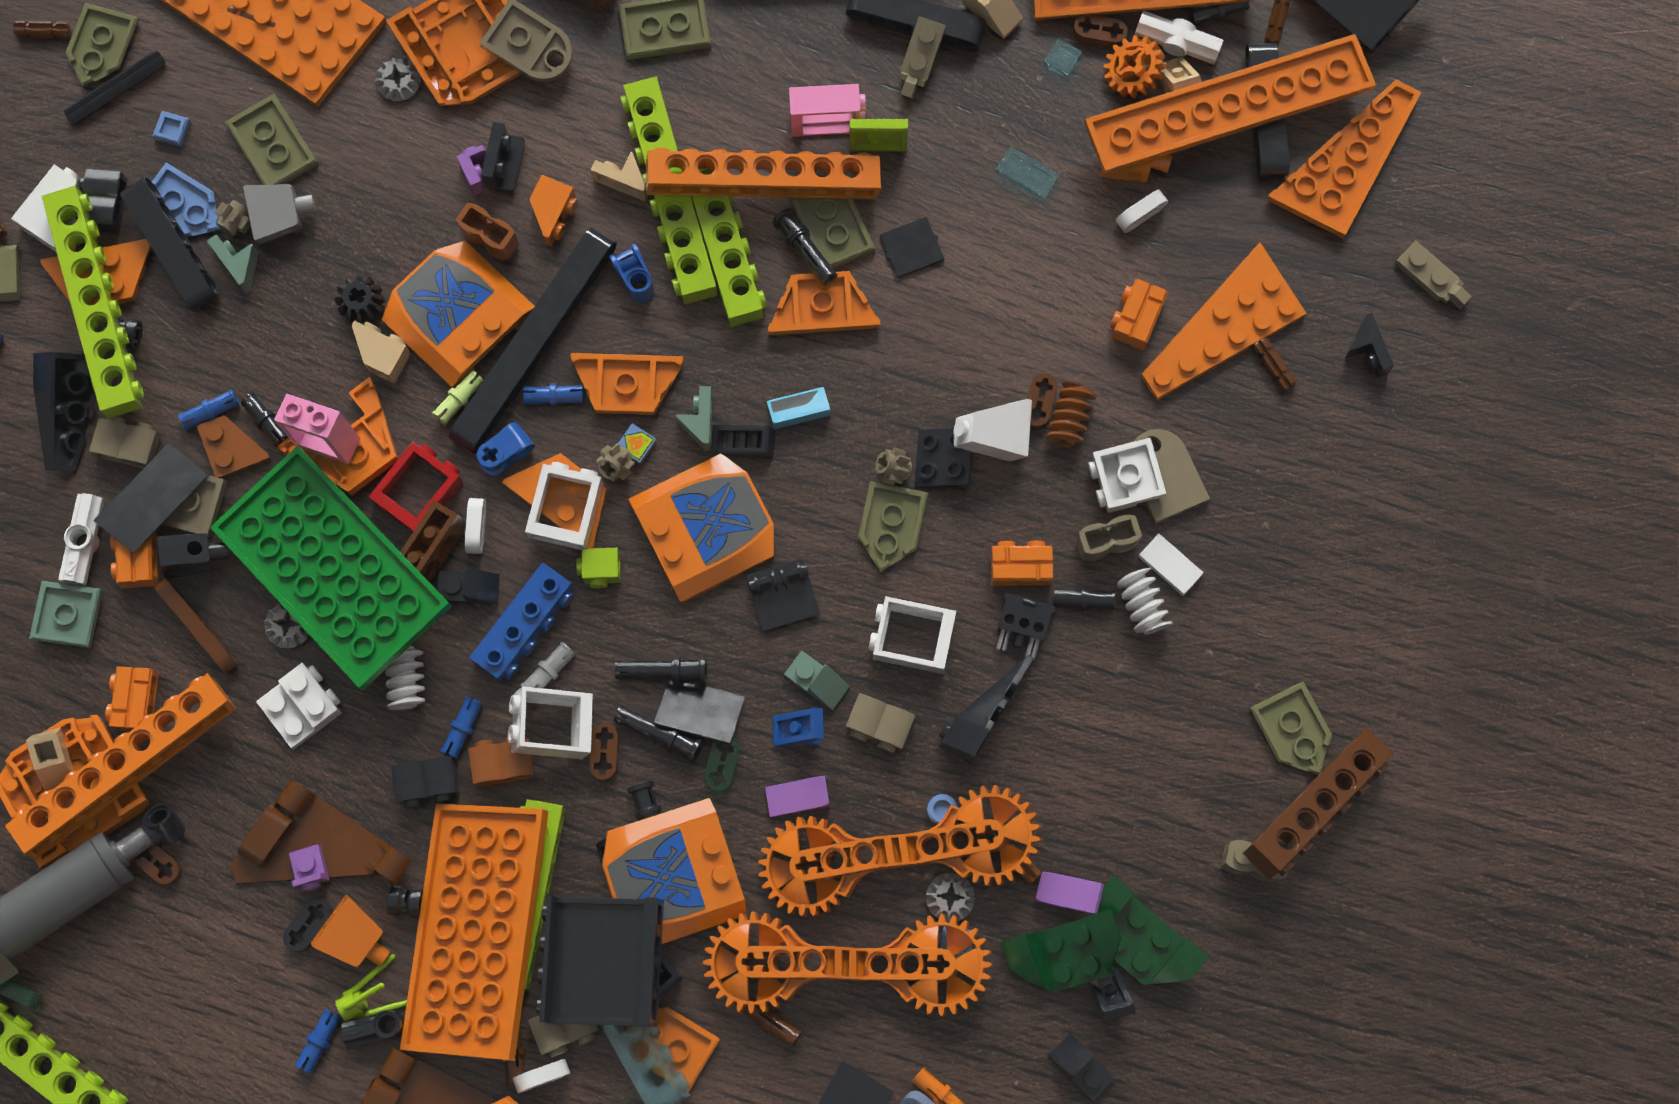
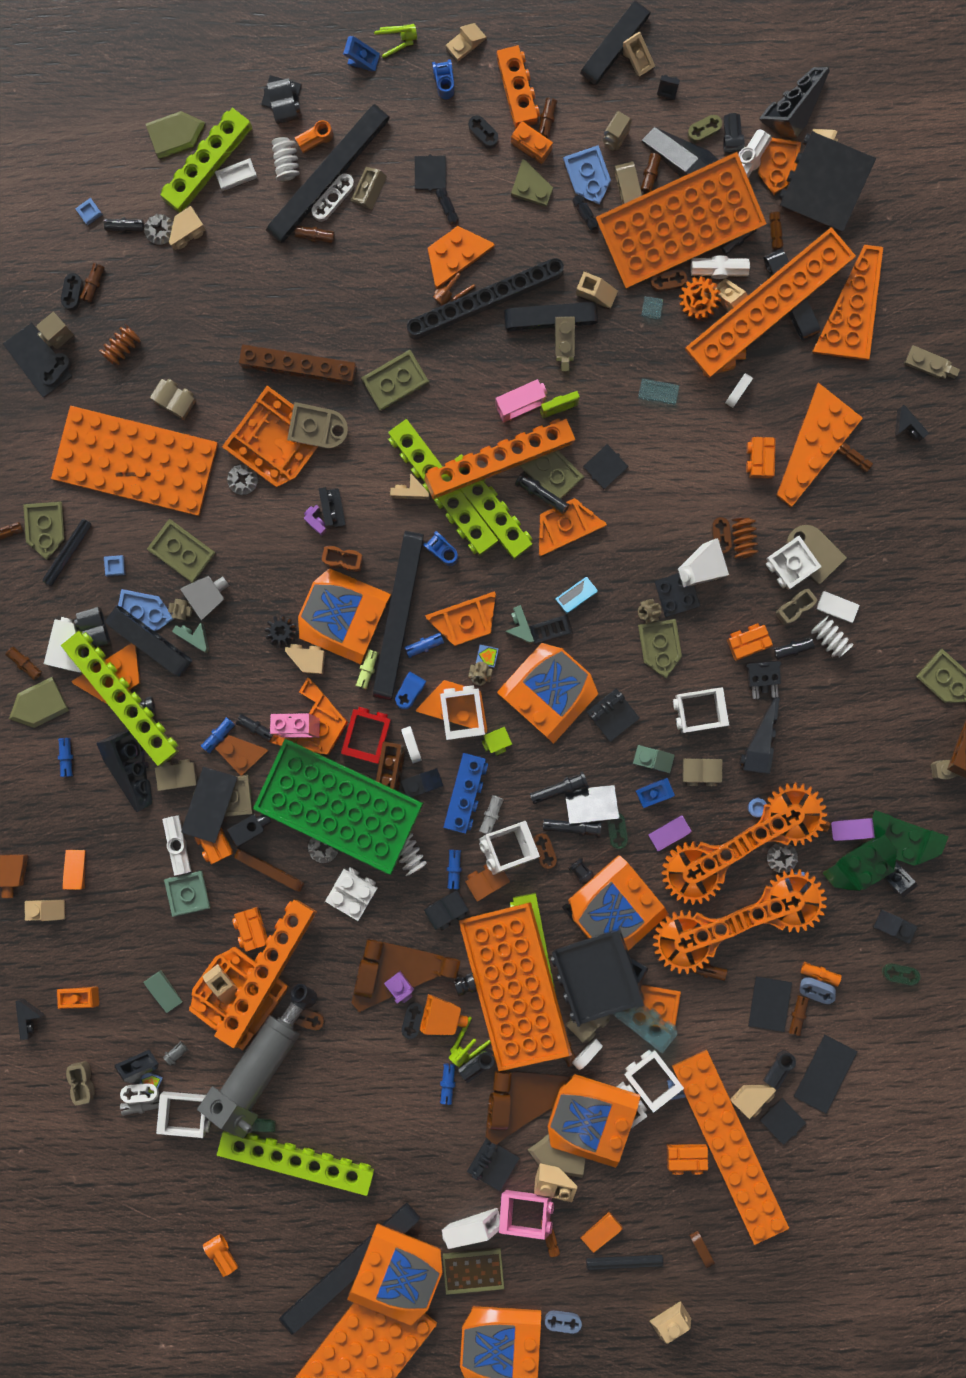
camera: 20 degrees left, 10 degrees up
(551, 206) = (373, 526): orange slope -> none

